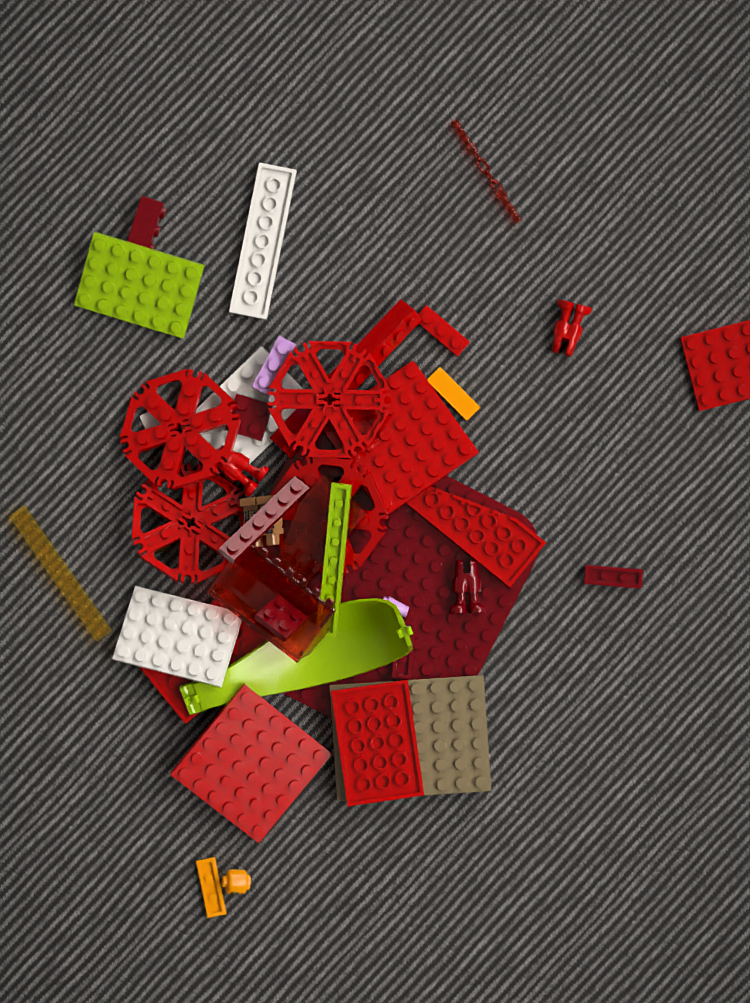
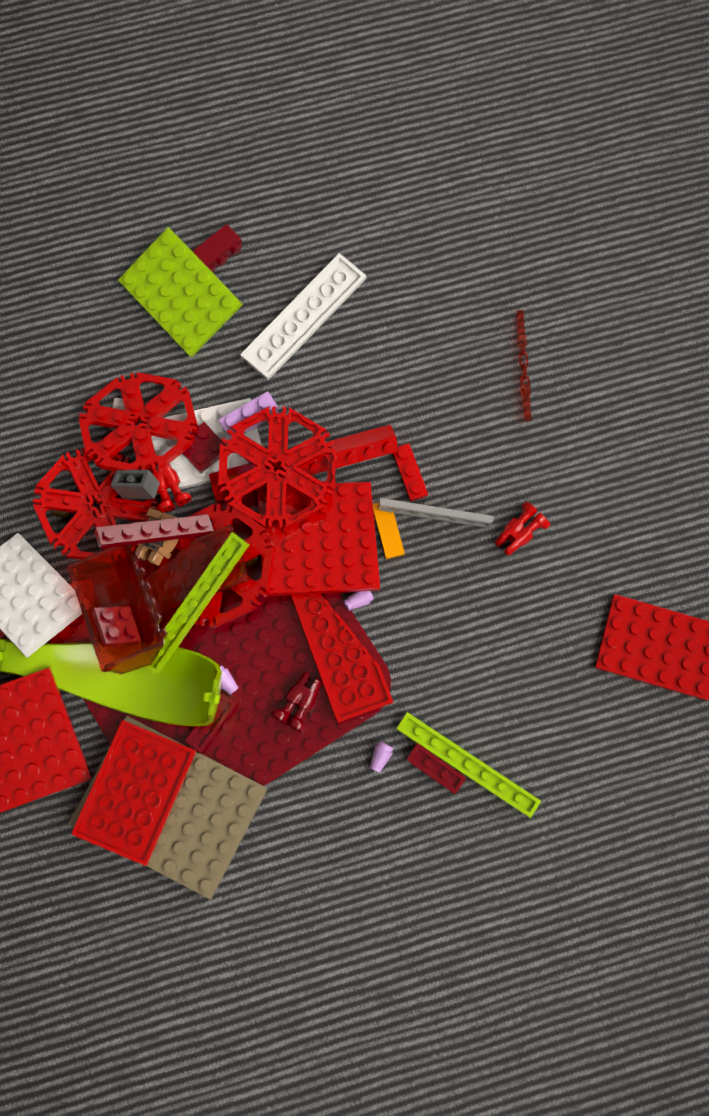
camera: 30 degrees right, 10 degrees down
(215, 486) = (135, 484): none -> dark grey brick
(464, 472) = (358, 600): none -> lavender cone
(487, 356) = (435, 513): none -> light grey tile
(561, 593) = (381, 755): none -> lavender cone
(638, 557) = (468, 765): none -> lime plate

